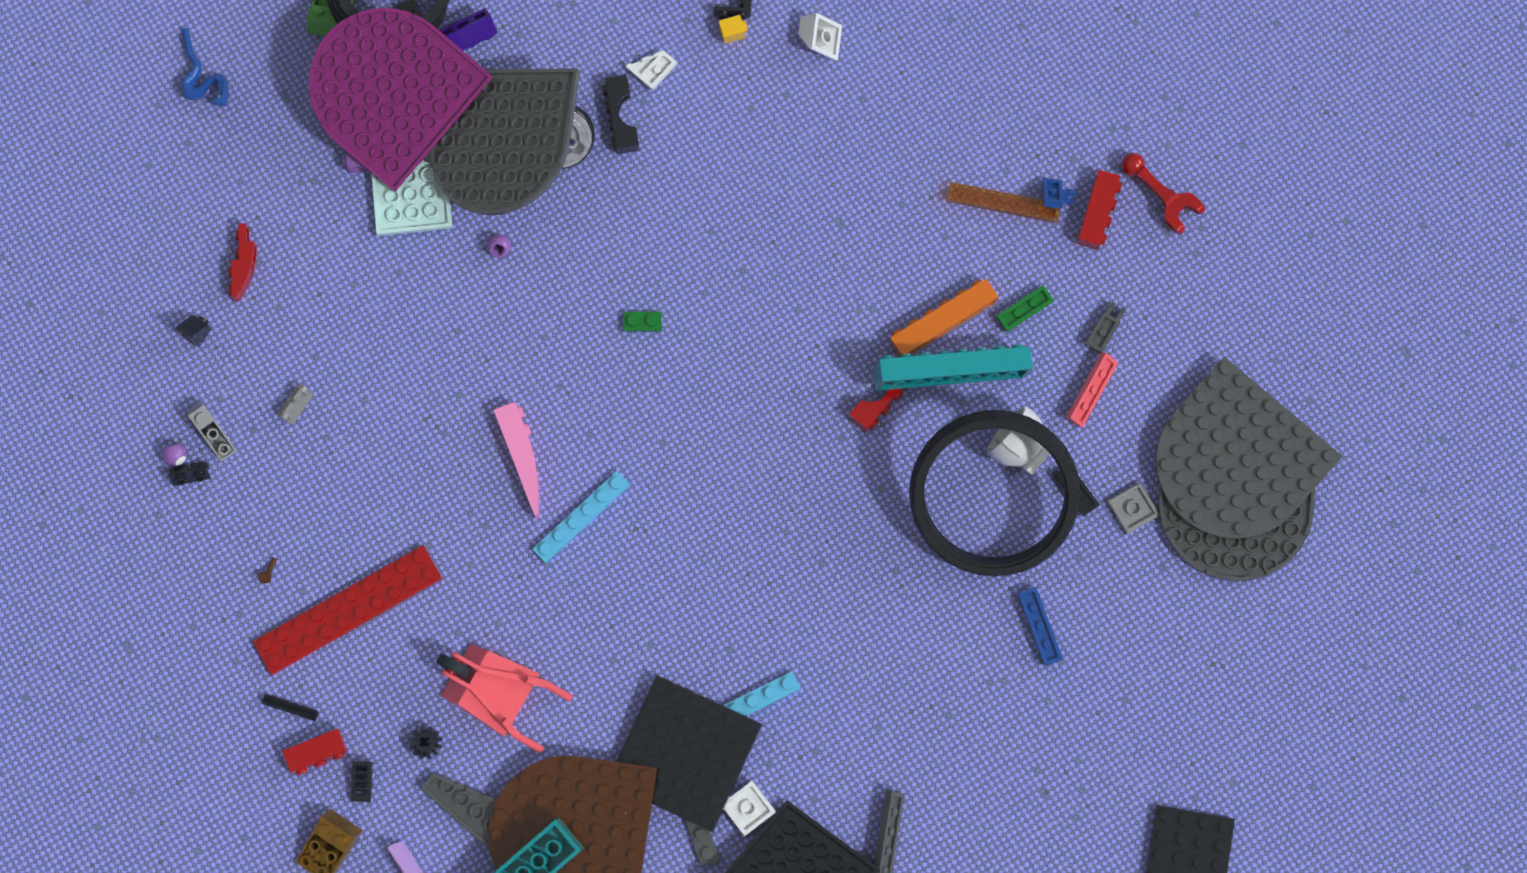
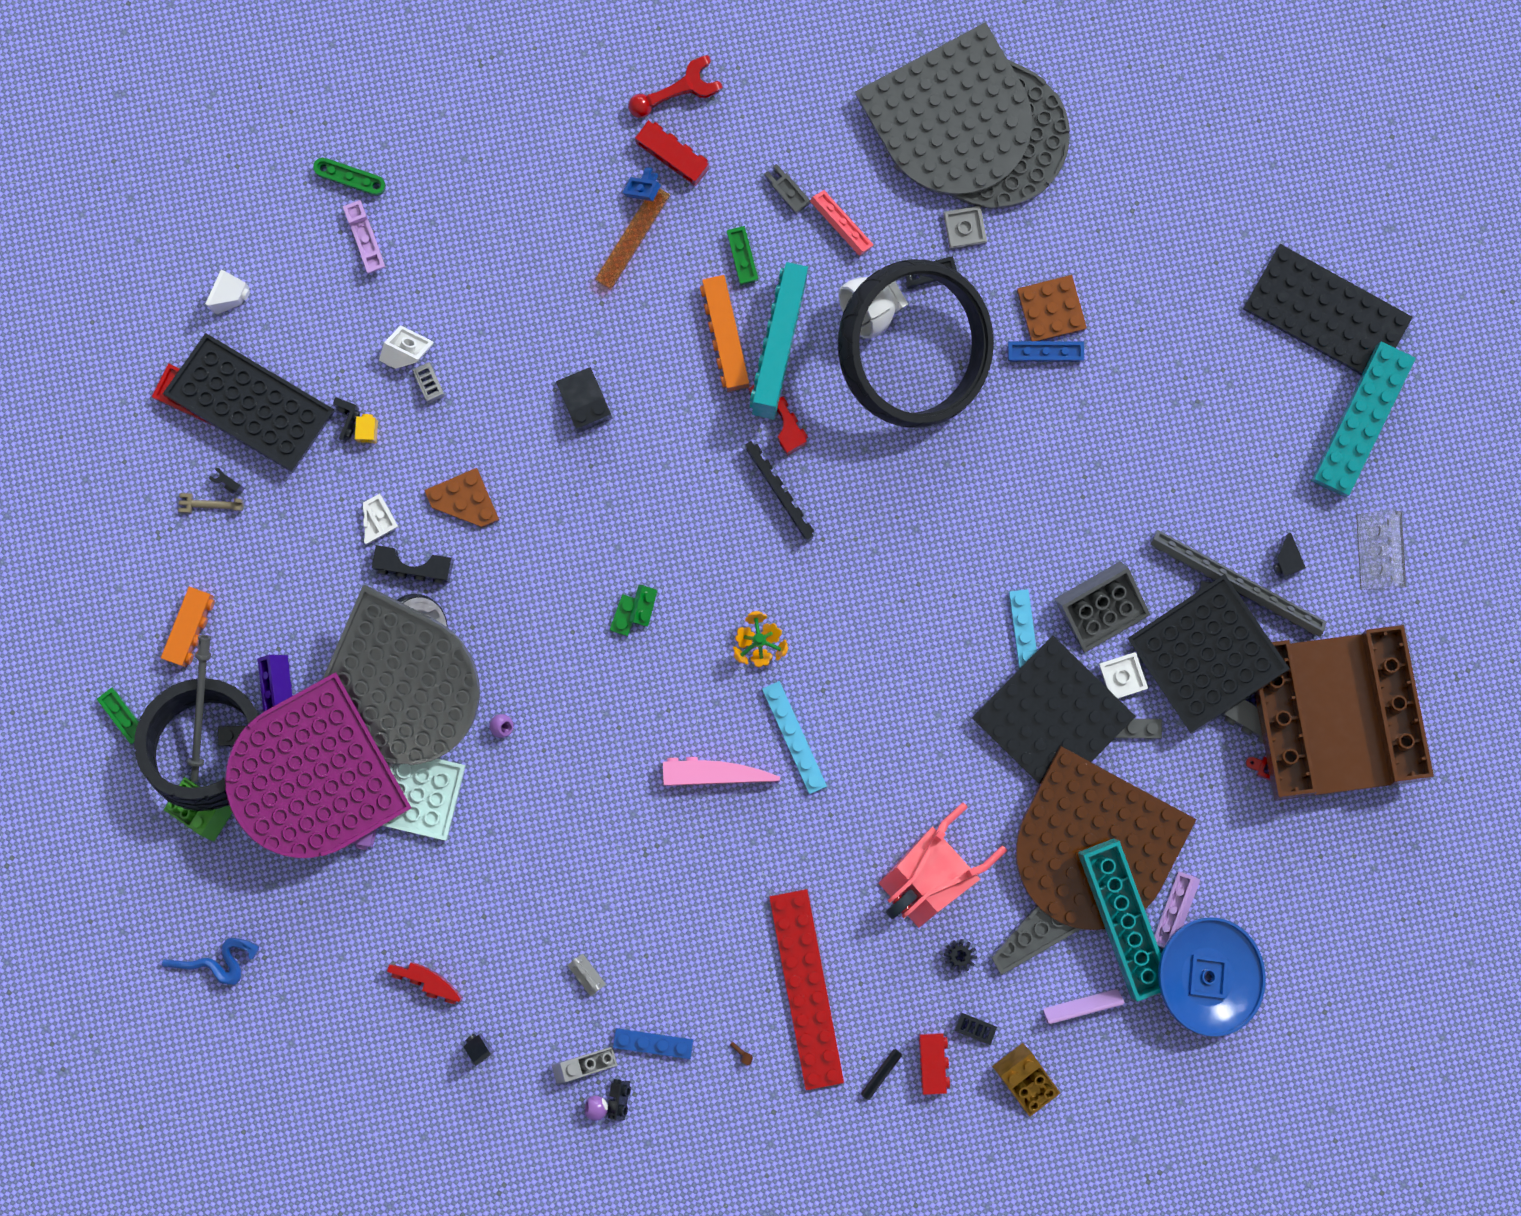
camera: 70 degrees left, 5 degrees up
(251, 487) = (653, 1043): none -> blue plate
(656, 334) = (643, 605): none -> green plate
(660, 442) = (766, 637): none -> light orange plant
(700, 139) = (464, 499): none -> dark orange plate
(790, 82) = (433, 396): none -> light grey slope
(805, 428) = (784, 497): none -> black plate
(809, 765) = (1102, 606): none -> dark grey slope
(831, 213) = (584, 400): none -> black slope
(1084, 618) = (1051, 308): none -> dark orange plate

